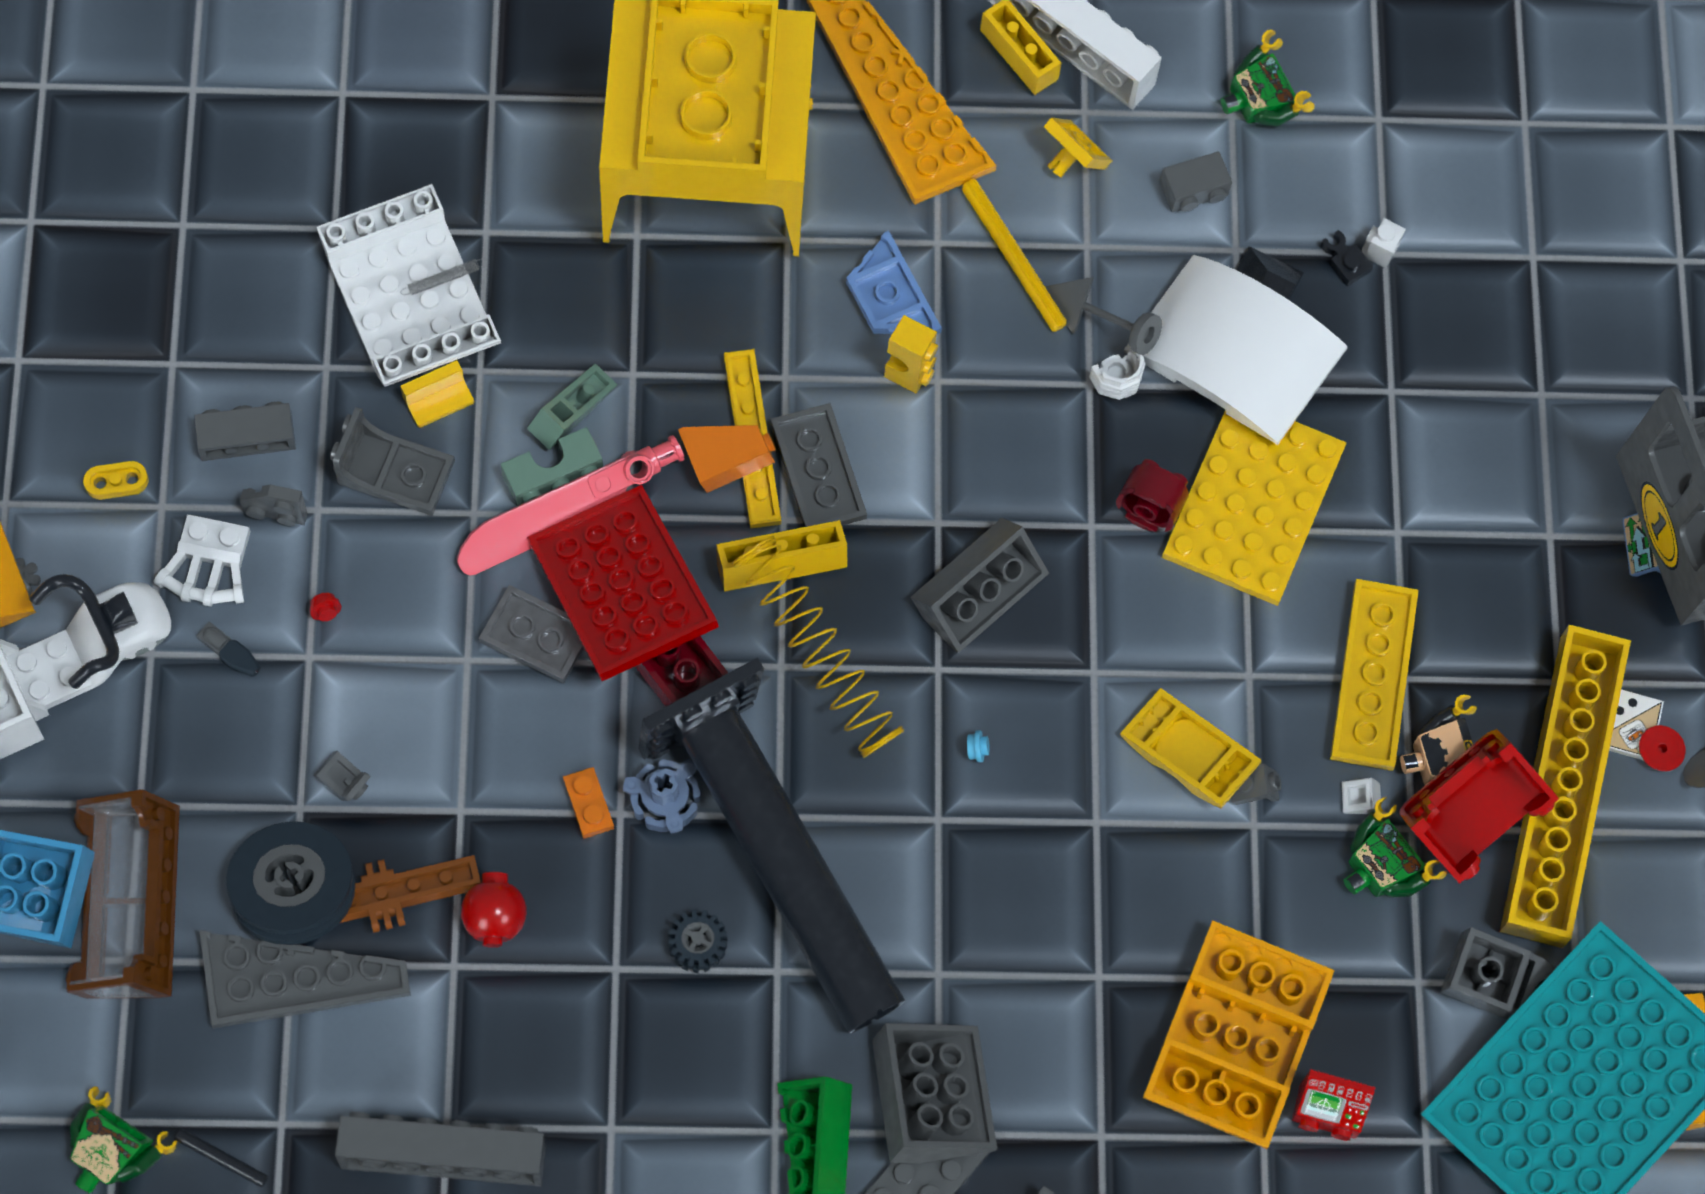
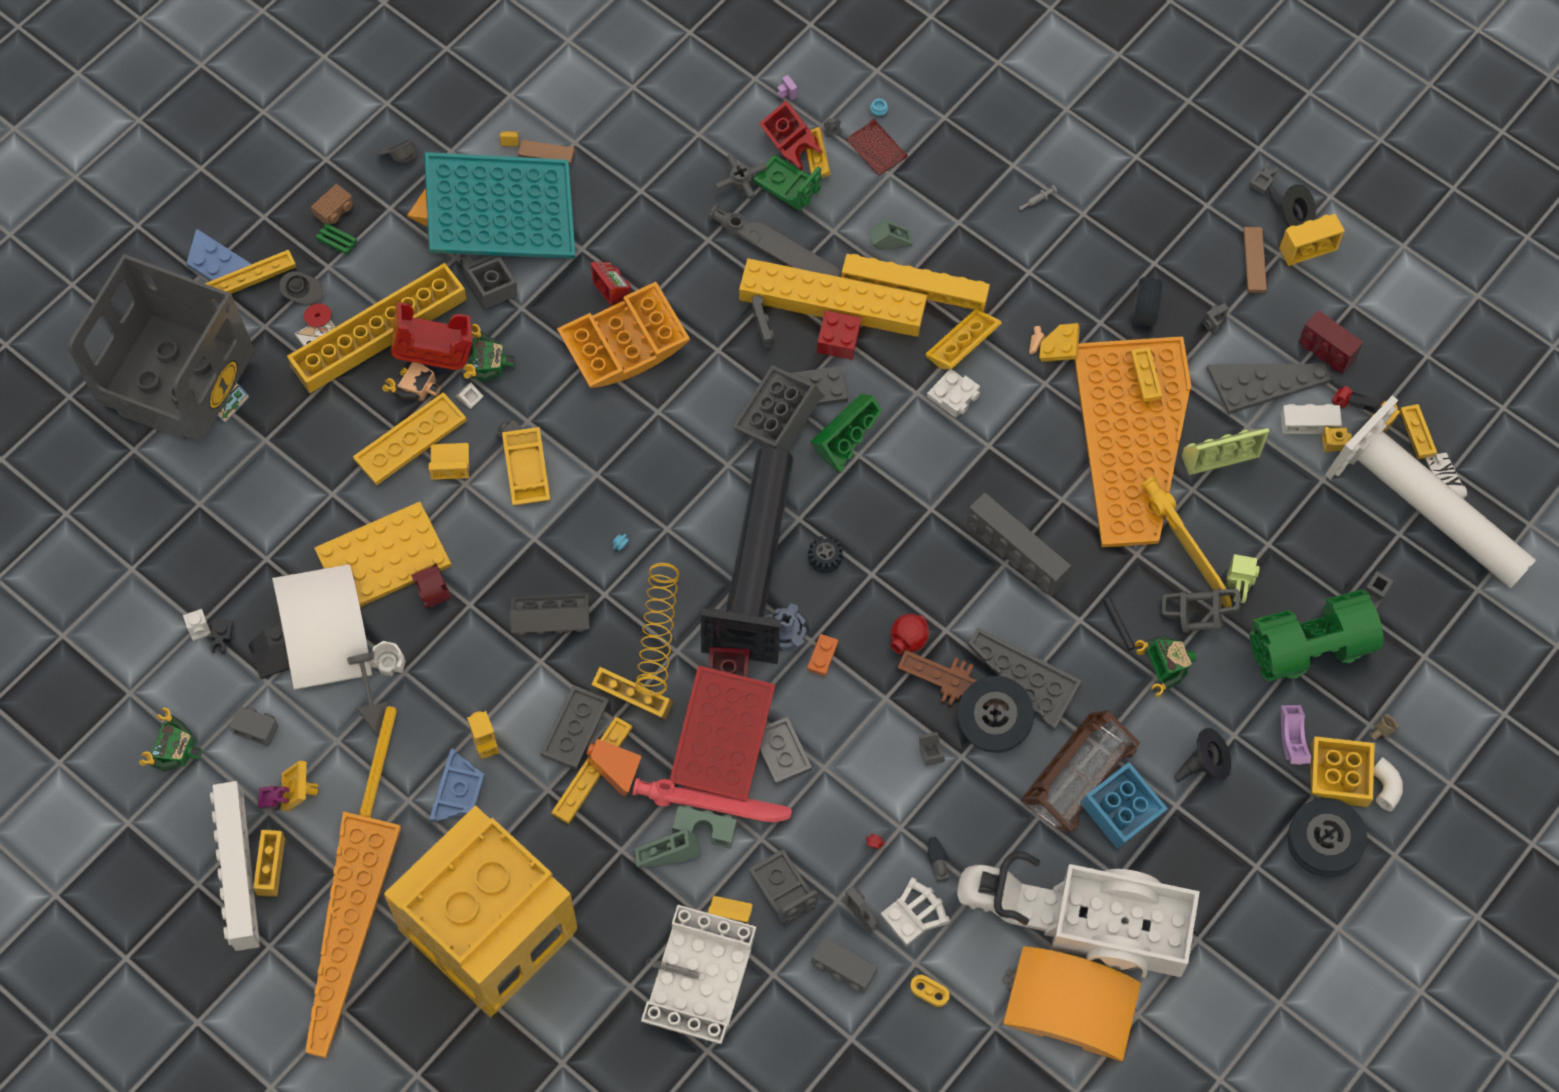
camera: 135 degrees left, 5 degrees down
(1092, 118) = (271, 795): none -> magenta plate
(1295, 682) = (449, 461): none -> yellow bracket

